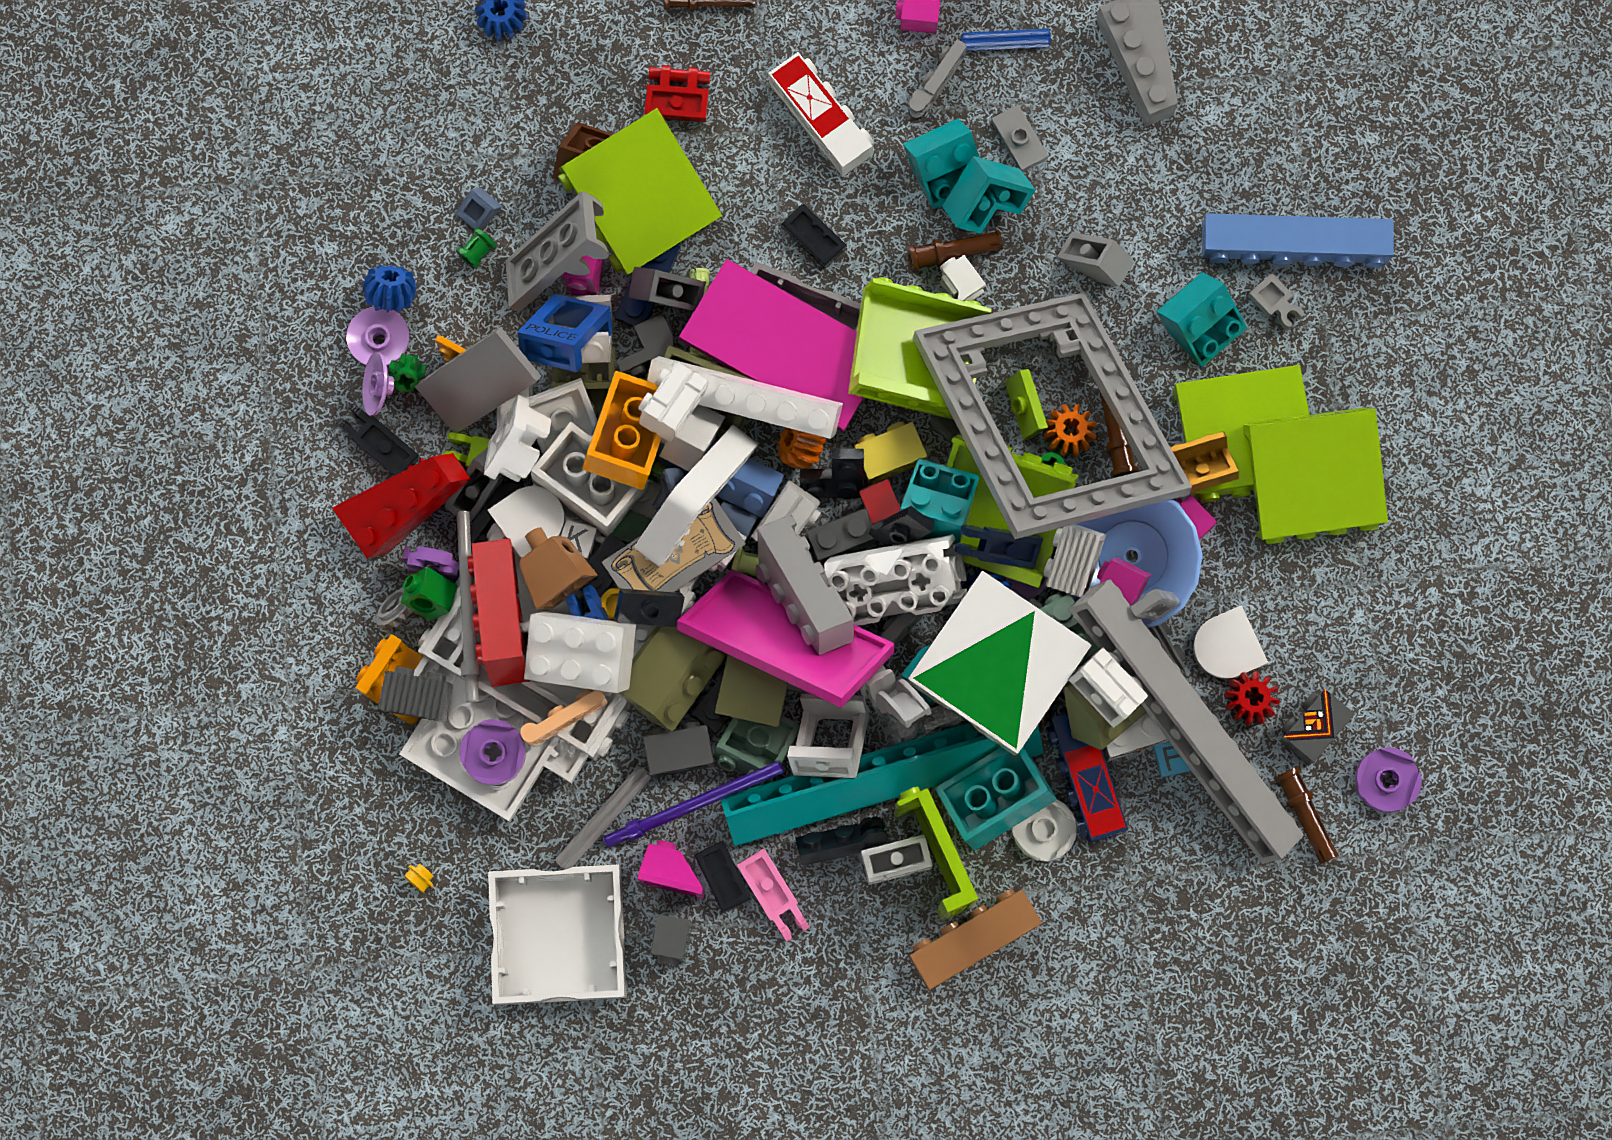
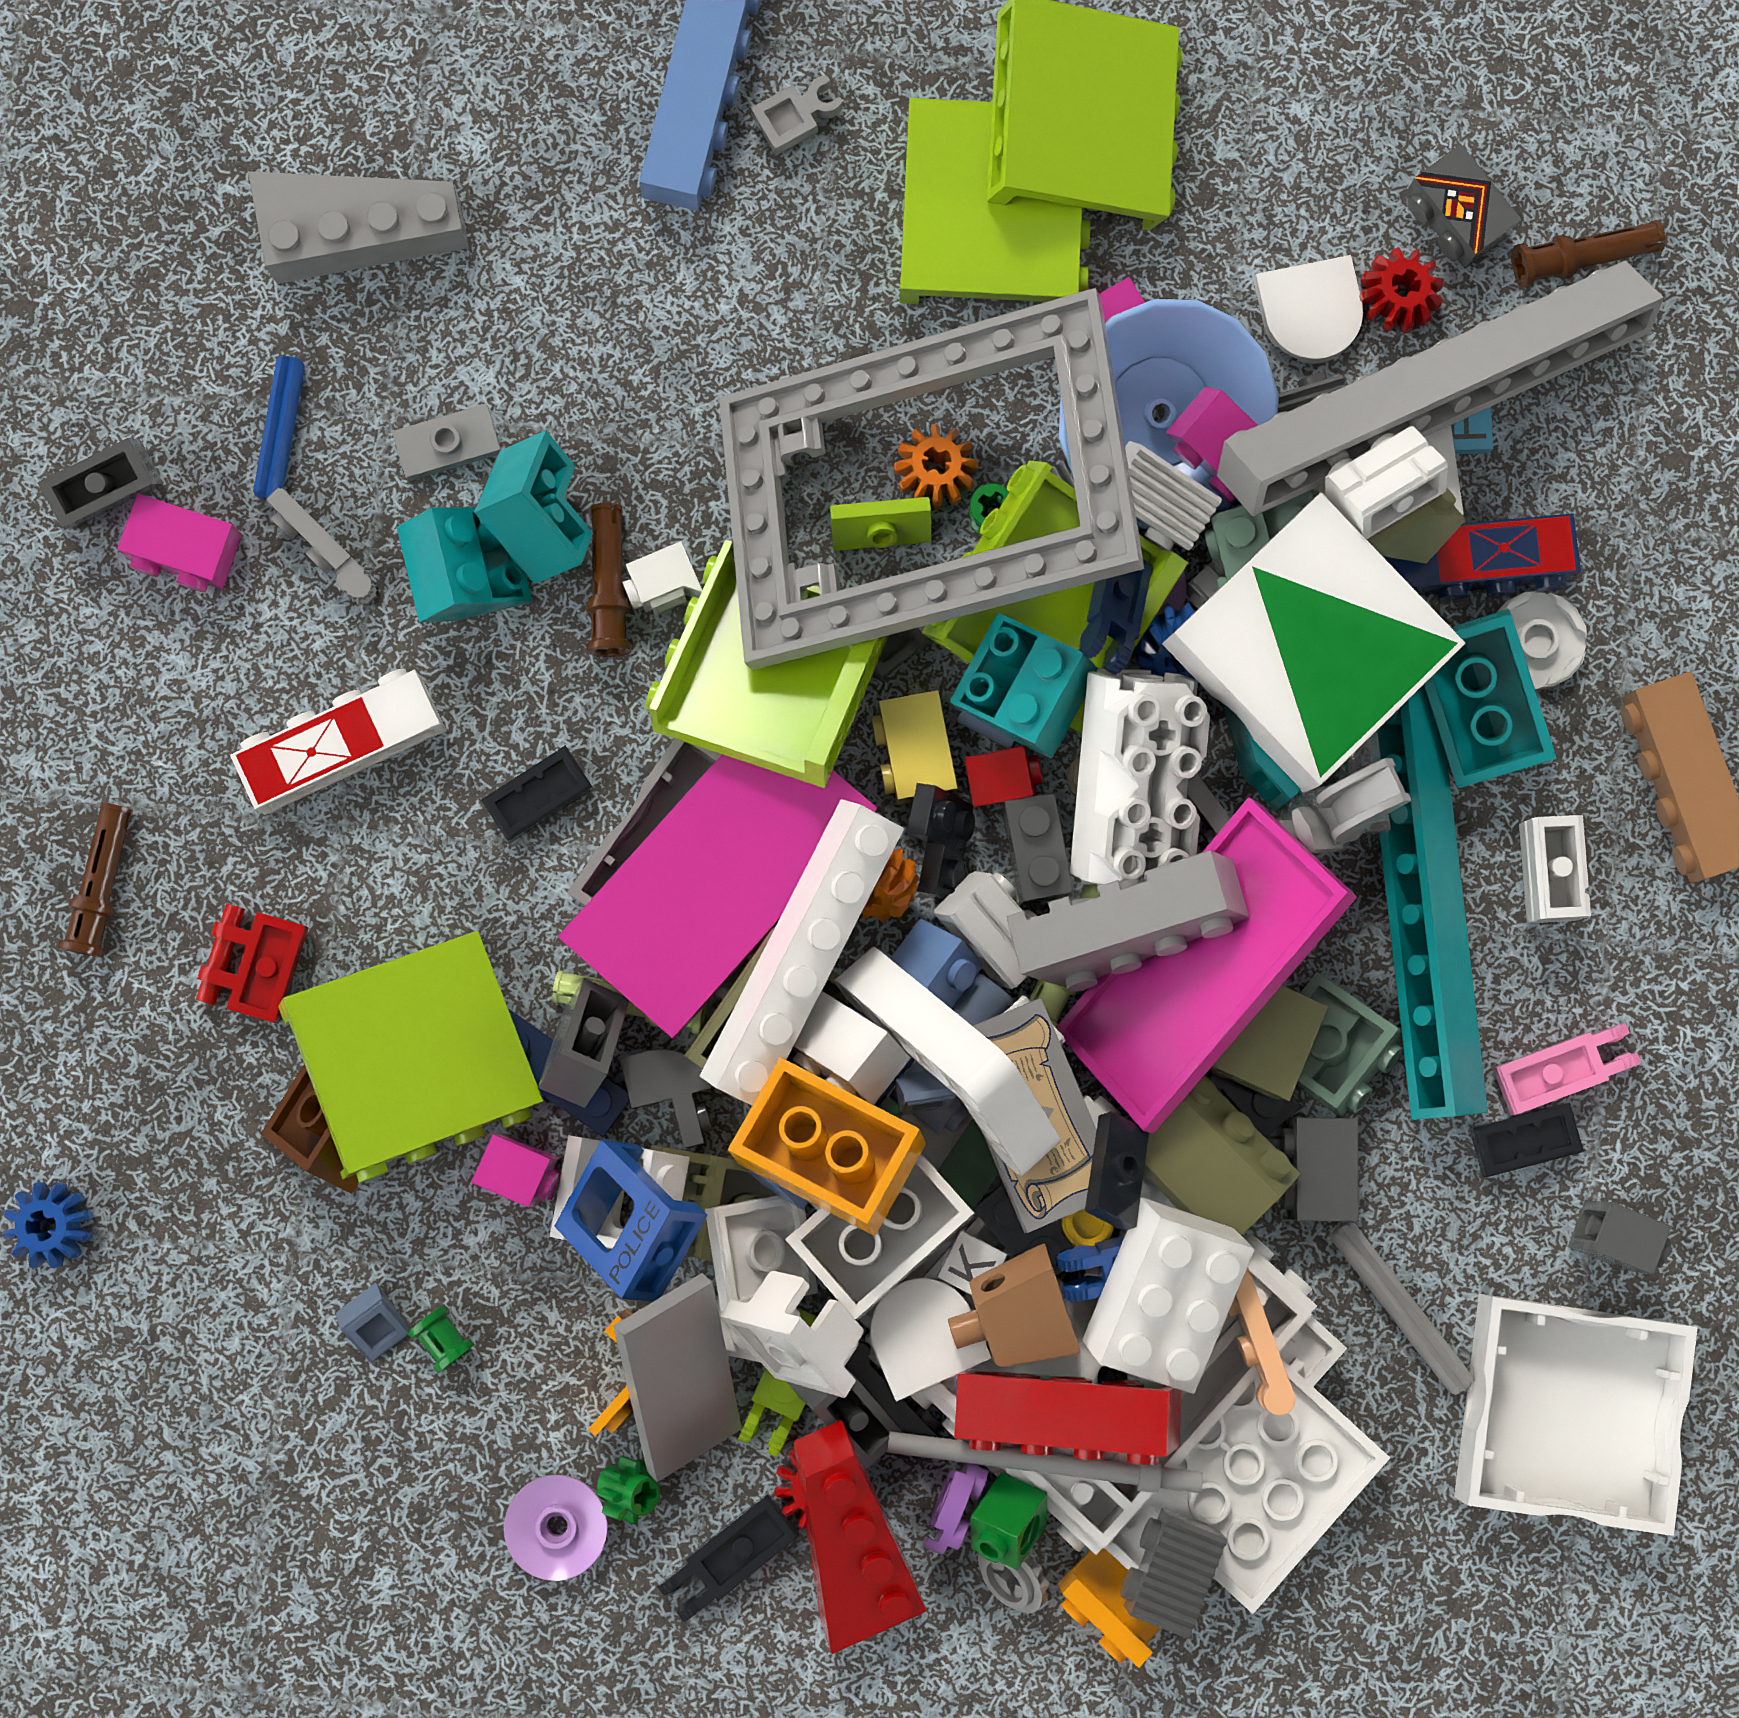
camera: 85 degrees left, 5 degrees up
(376, 384) = (641, 1545): lavender dish -> none
(389, 288) = (480, 1494): blue gear -> none
(419, 877) = (1444, 1614): yellow plate -> none
(481, 738) = (1299, 1490): medium lavender plate -> none
(555, 250) = (487, 1211): light grey hinge -> none
(636, 828) = (1429, 1257): dark purple bar -> none
(668, 870) = (1514, 1219): dark pink slope -> none
(672, 402) = (804, 1066): white brick -> none
(828, 760) = (1393, 948): white window -> none
(841, 841) = (1507, 947): black hinge -> none
(902, 527) = (1058, 749): black plate -> none
(943, 849) = (1645, 788): lime panel -> none
(1096, 257) = (669, 366): light grey slope -> none
(1117, 446) = (974, 398): reddish brown pin -> none
(1155, 604) = (1265, 386): light grey plate -> none
(1202, 318) = (799, 228): teal slope -> none
(1206, 461) = (1040, 264): pearl gold bracket -> none
(1404, 772) = (1560, 152): medium lavender plate -> none

